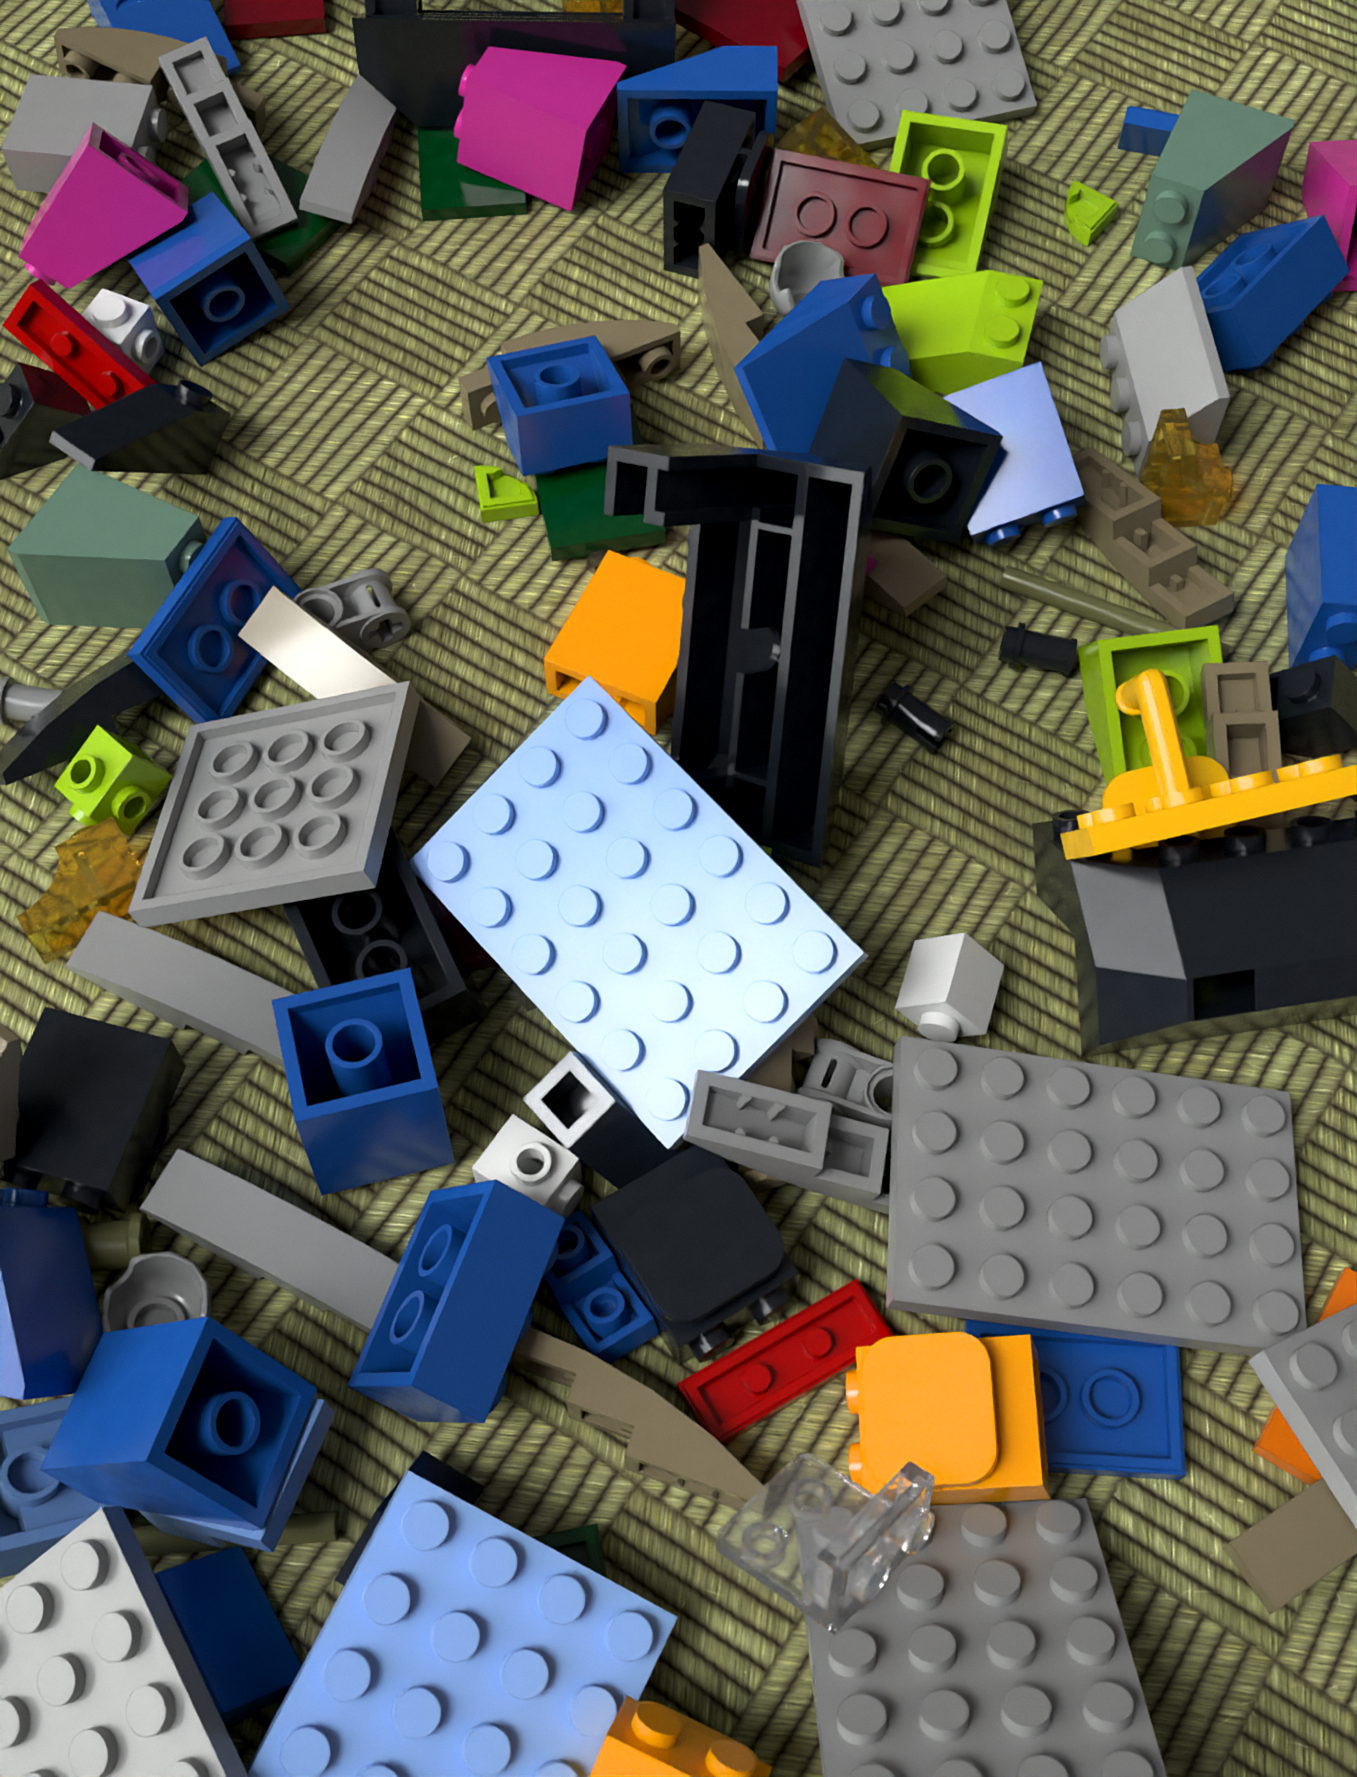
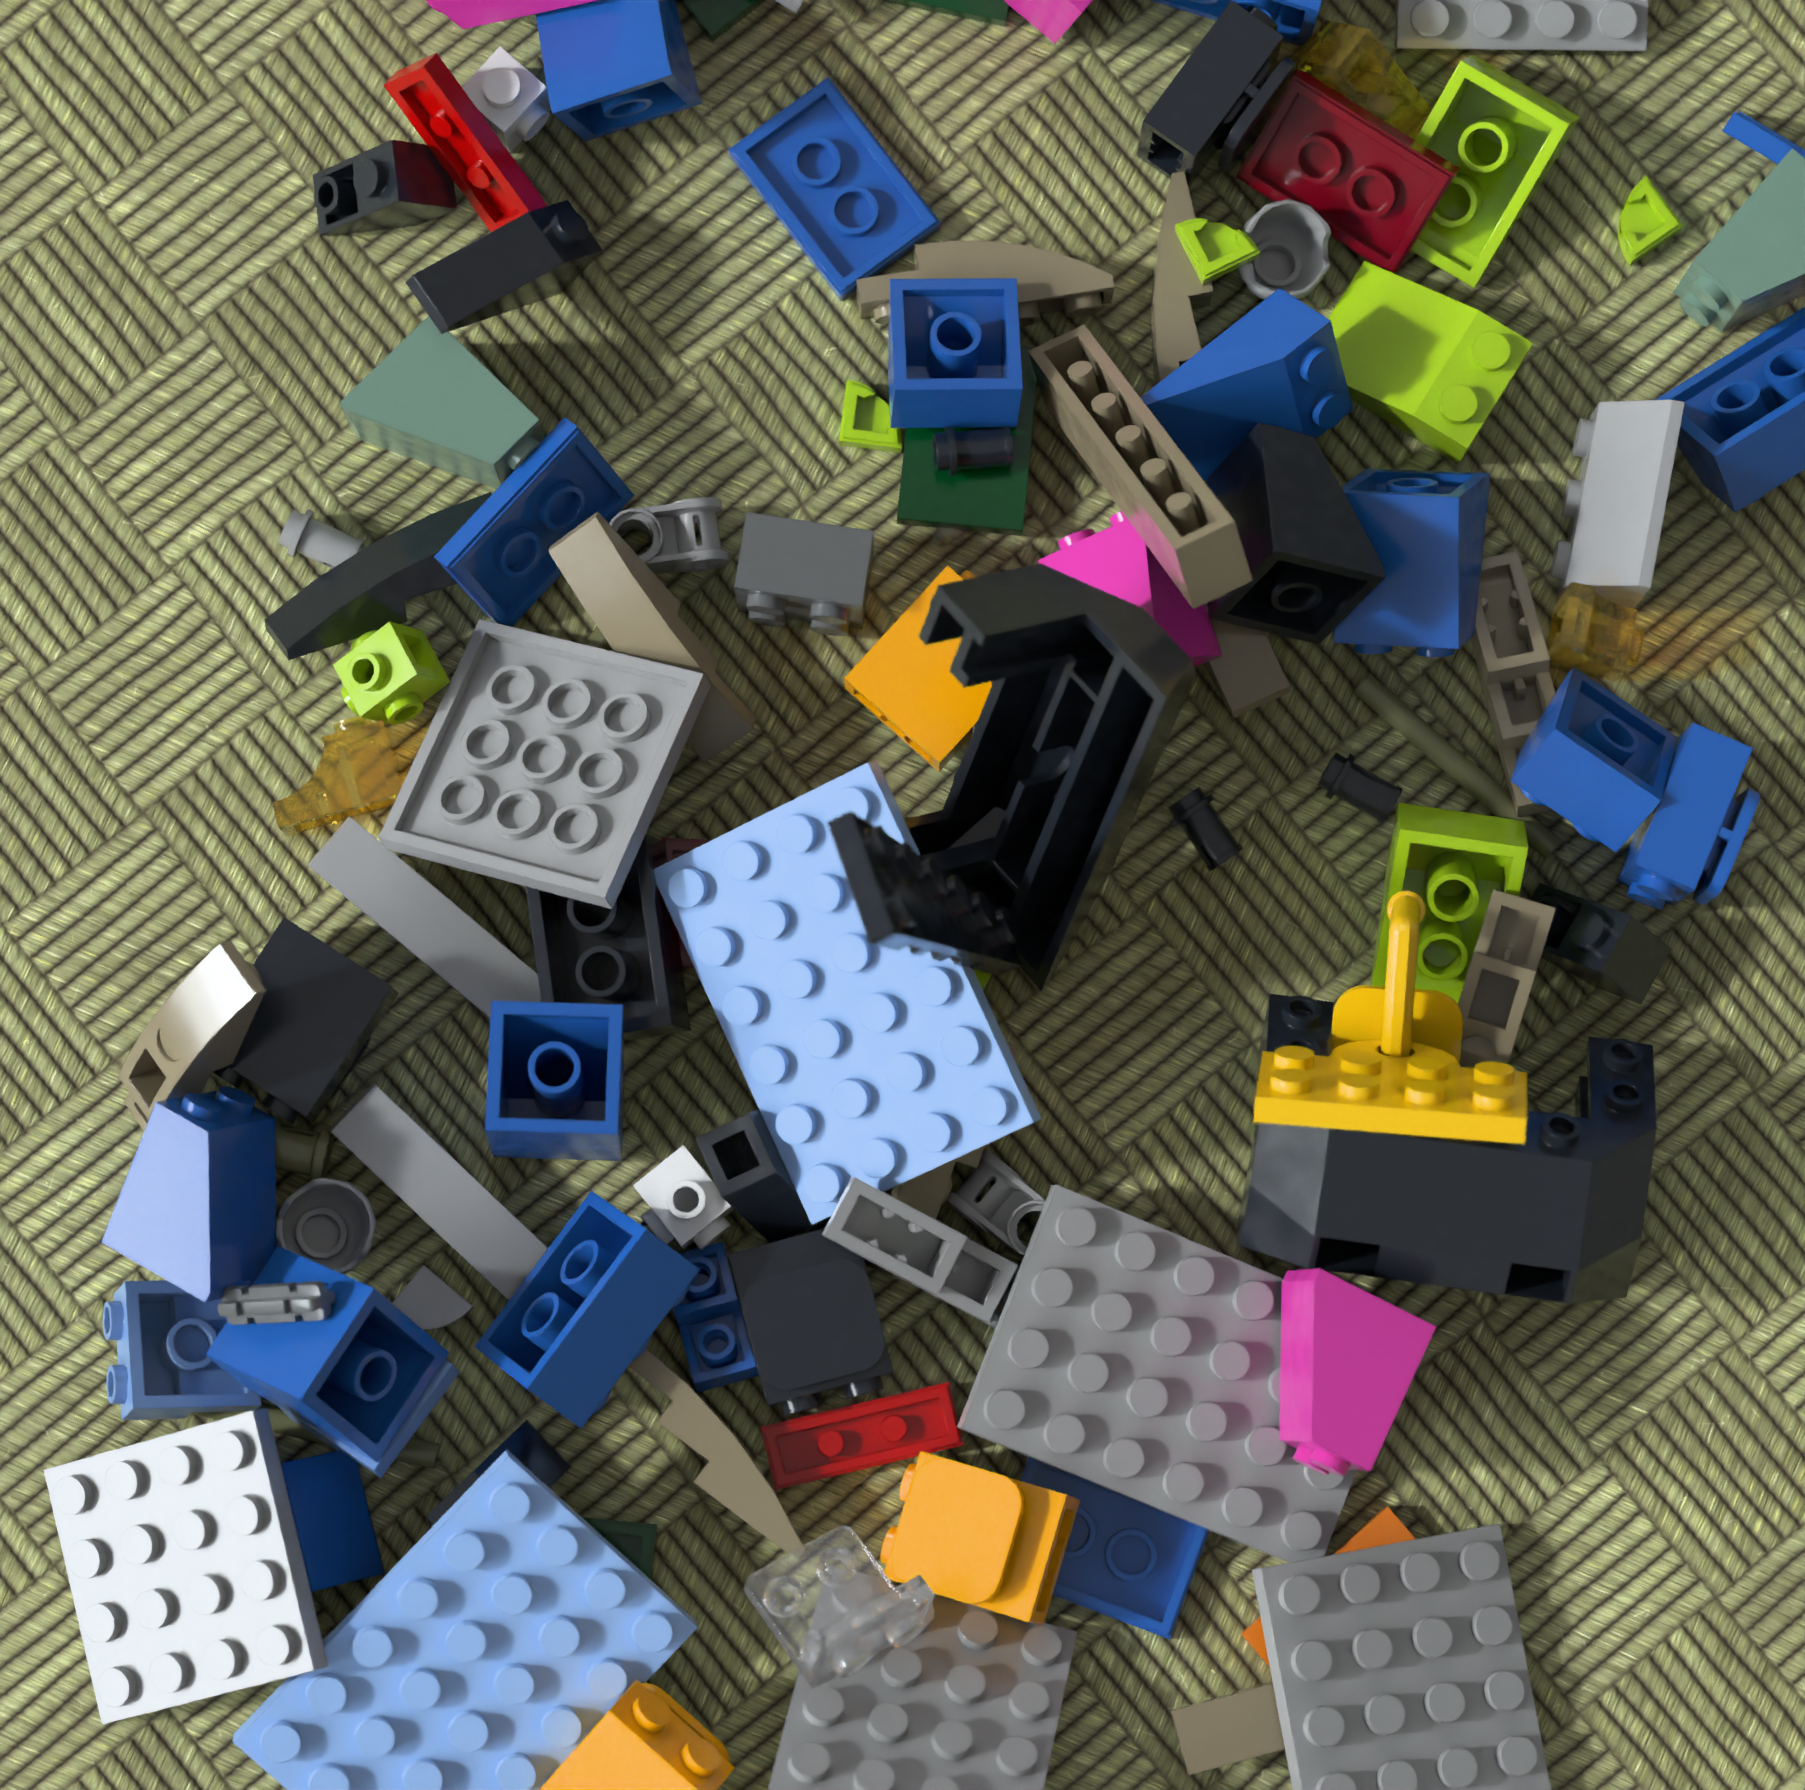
camera: 15 degrees right, 20 degrees up
(104, 1375) = (276, 1303): none -> axle
(299, 1353) = (431, 1301): none -> light grey tile
(414, 342) = (834, 188): none -> blue tile
(480, 596) = (804, 573): none -> dark grey brick
(585, 478) = (972, 449): none -> black pin
(660, 698) = (918, 904): none -> black wing
(754, 282) = (1215, 247): none -> lime tile
(767, 402) = (1140, 467): none -> dark tan brick
(949, 987) = (1127, 1138): white brick -> none
(1242, 557) = (1595, 761): none -> blue slope
(1259, 1116) = (1342, 1369): none -> dark pink slope

